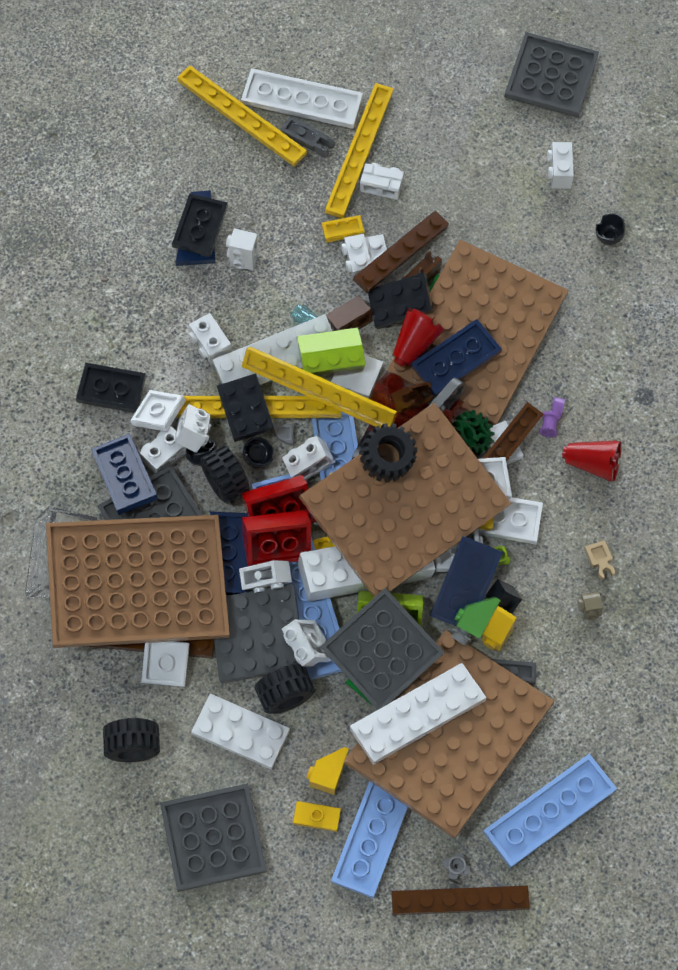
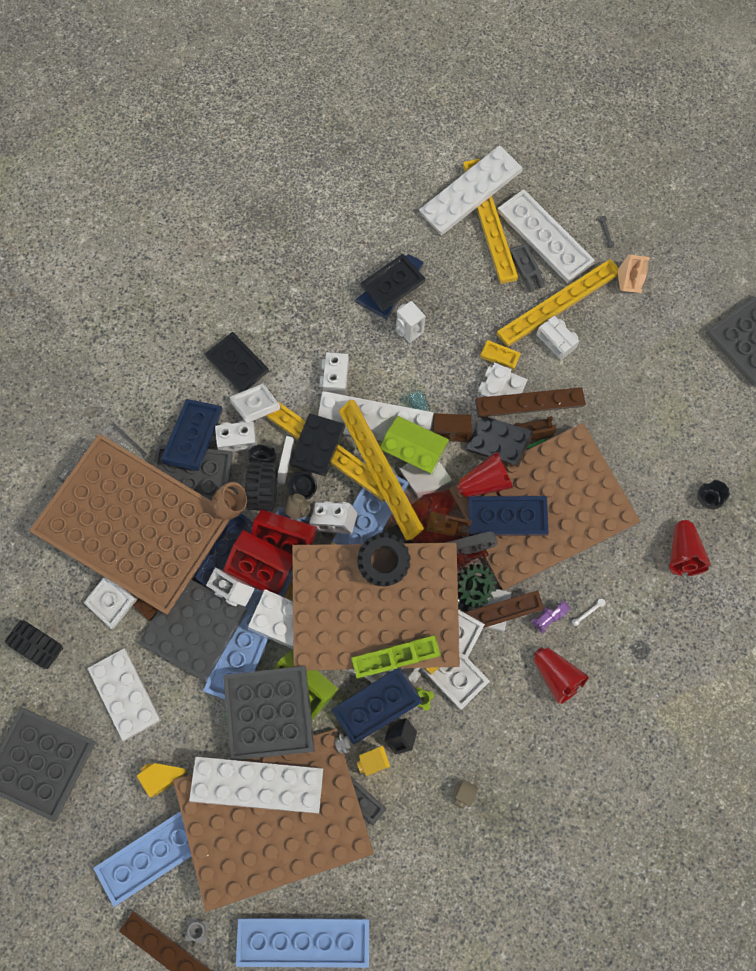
camera: 35 degrees right, 5 degrees up
(193, 428) = (266, 434): white brick -> none
(204, 99) = (470, 190): none -> white plate
(210, 506) = (228, 503): none -> medium nougat helmet
(225, 434) = (284, 463): none -> white tile
(270, 470) = (297, 506): none -> dark tan plate
(284, 433) = (336, 484): light grey tile -> none
(284, 688) = (174, 688): black tyre -> none
(305, 640) = (214, 662): white plate -> none
(316, 816) = (126, 805): yellow plate -> none
(341, 52) = (603, 220): none -> dark grey hinge
(404, 83) = (633, 273): none -> light nougat slope
(455, 527) = (396, 656): none -> lime slope
(476, 616) = (364, 738): bright green slope -> none
(560, 165) = (711, 416): white brick -> none
(584, 380) = (600, 603): none -> white hinge
(600, 556) = (503, 758): tan plate -> none
(624, 288) = (688, 551): none -> red cone

